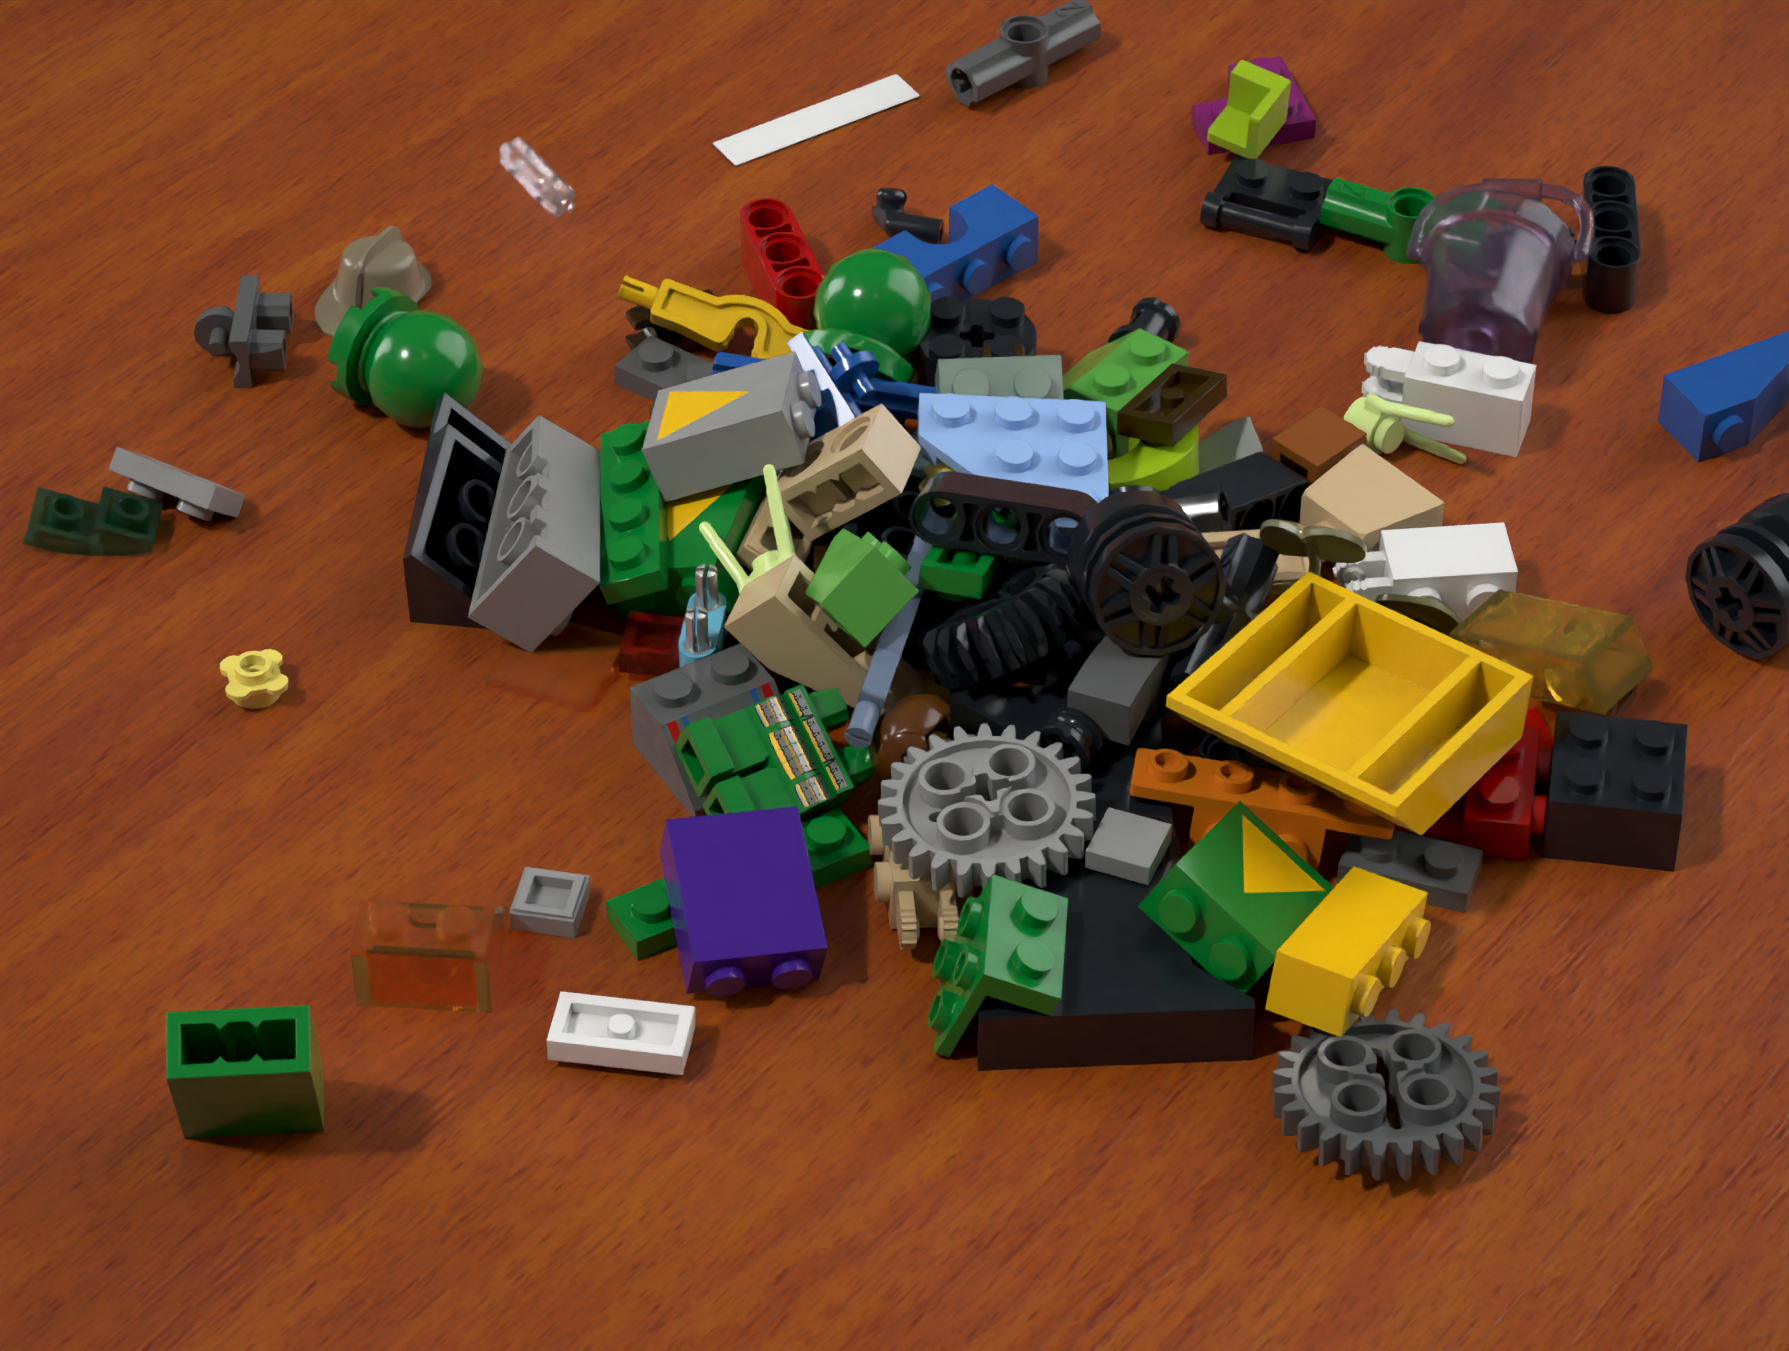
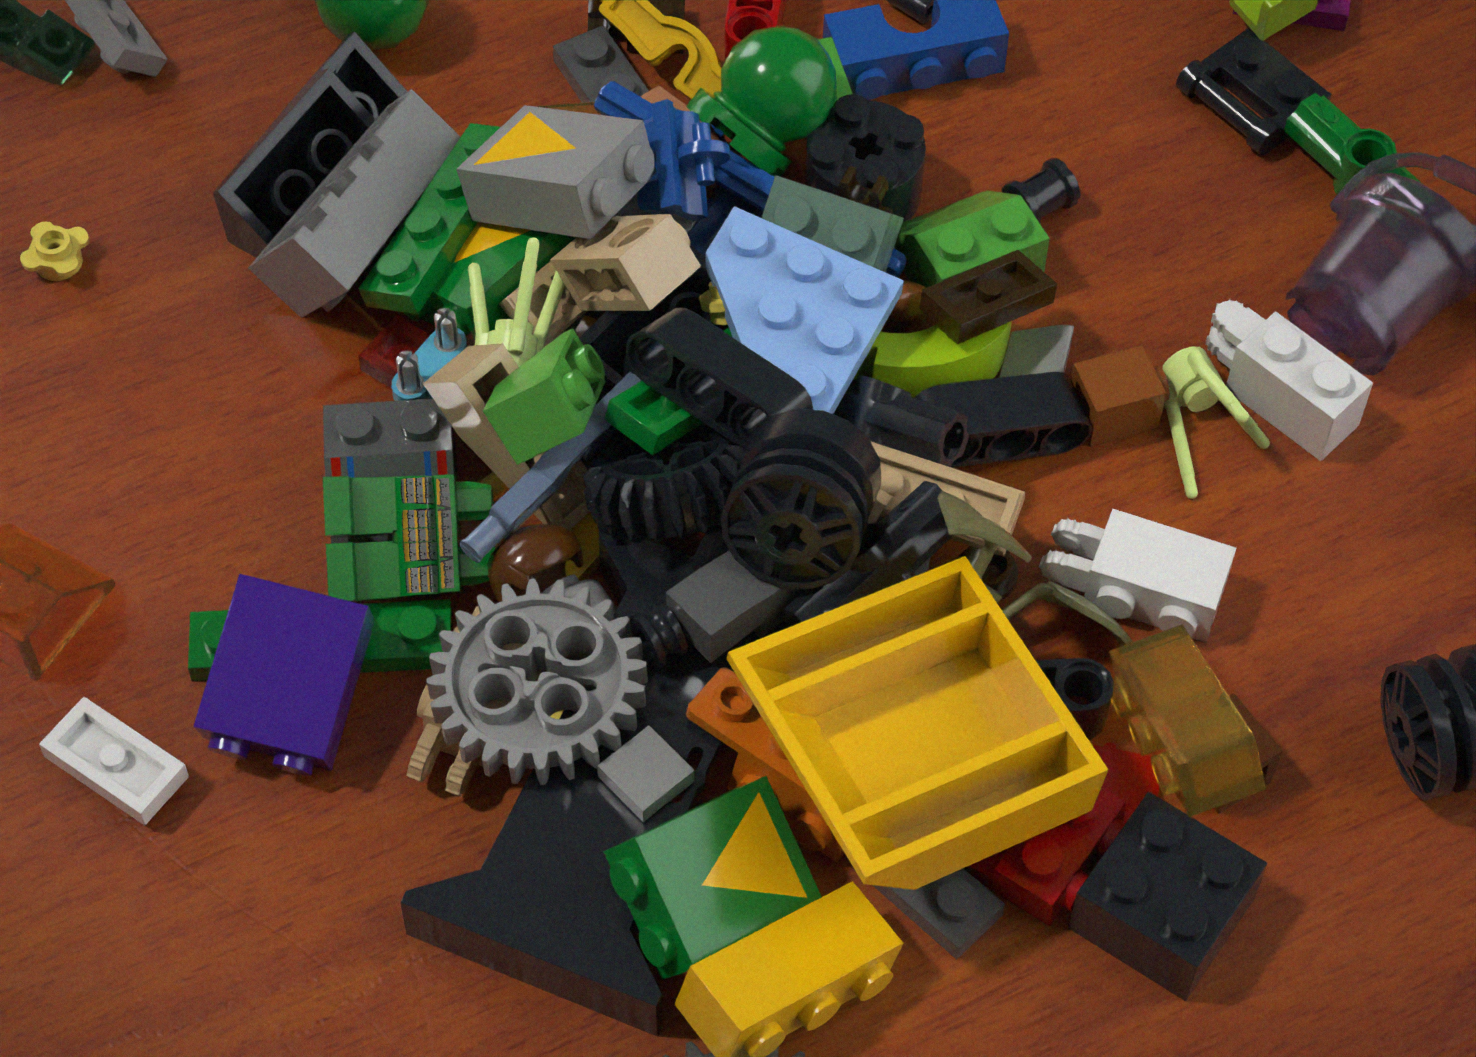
camera: 25 degrees right, 15 degrees up
(550, 902) = (151, 589): light grey tile -> none
(1003, 948) = (467, 845): green bracket -> none
(1368, 496) = (1119, 467): tan torso -> none

